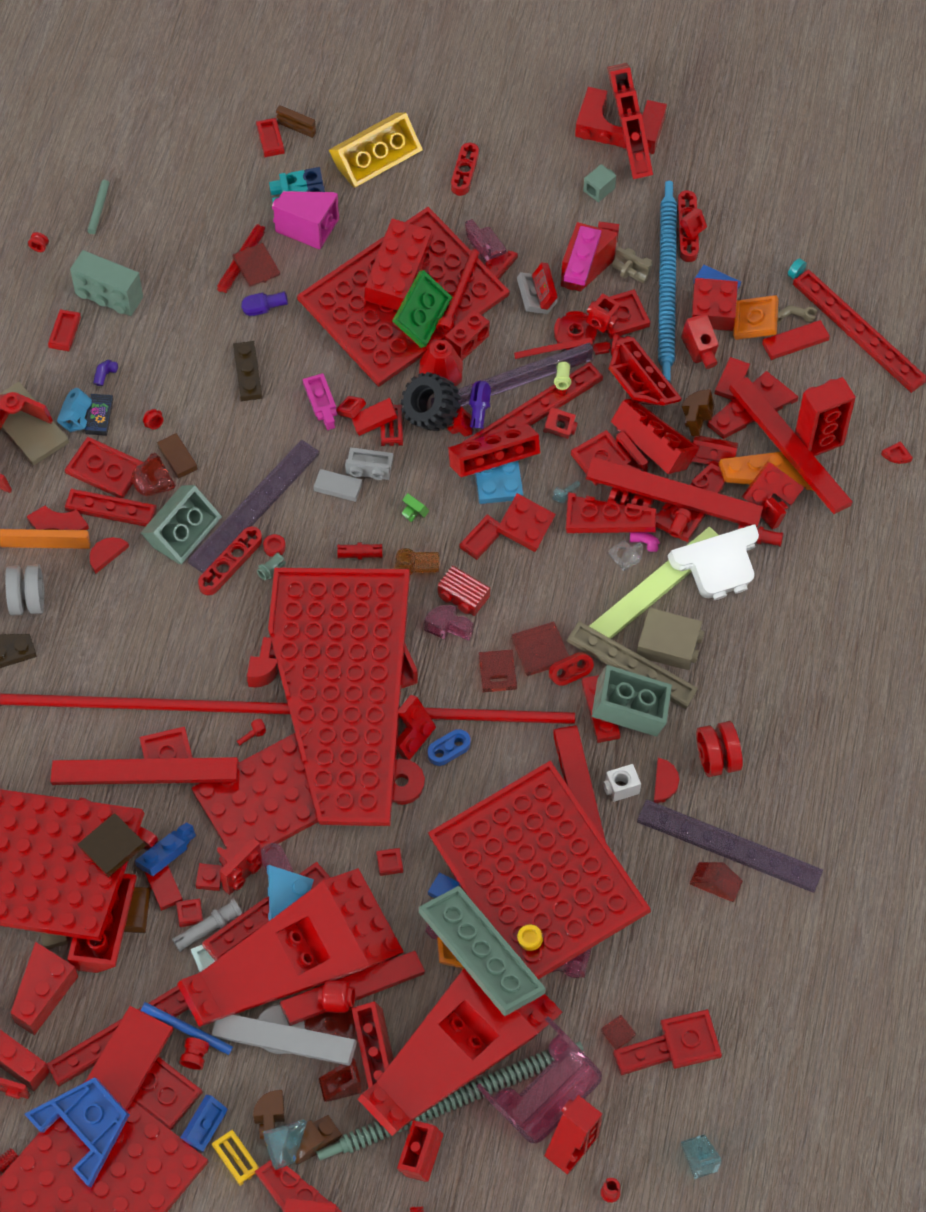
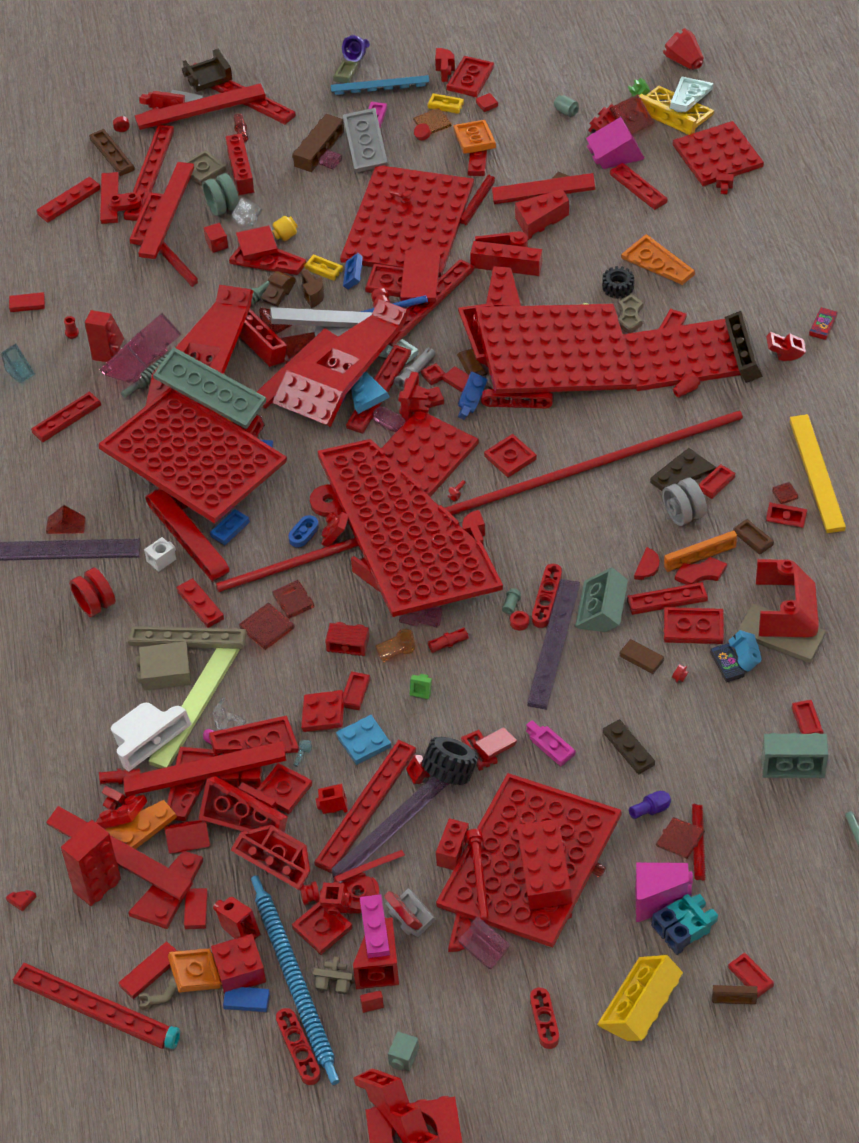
camera: 160 degrees right, 10 degrees down
(92, 1115) = (426, 239): blue wing -> none
(104, 369) = (747, 702): dark purple arm -> none
(111, 845) = (500, 354): dark brown tile -> none
(144, 771) = (516, 432): red tile -> none
(152, 477) = (644, 621): clear red hair -> none
(284, 1142) = (294, 268): clear light blue slope -> none
(337, 485) = (495, 684): light grey tile -> none
(337, 996) = (299, 346): red head -> none
(350, 406) = (520, 746): red tile -> none
(369, 463) = (477, 704): light grey bracket -> none
(389, 861) = (309, 451): red tile -> none
(420, 1151) = (203, 298): red brick -> none
(422, 309) = (500, 833): green tile -> none
(443, 361) = (462, 805): red cone -> none
(445, 620) = (351, 611): clear pink brick -> none
(479, 403) = (407, 779): dark purple arm -> none
(494, 450) = (398, 724): red brick -> none
(530, 937) = (179, 407): yellow tile -> none
(562, 378) = (347, 837): yellowish green pin -> none
(570, 670) = (239, 612): red plate -> none
(618, 1032) = (101, 413): clear red tile -> none
(631, 700) = (174, 598): sand green brick -> none
(666, 781) = (128, 572): red tile -> none
(681, 518) = (190, 751): red pin -> none
(691, 1039) = (48, 421): red tile -> none
(693, 223) = (289, 1033): red tile -> none
(698, 408) = (214, 856): reddish brown brick -> none

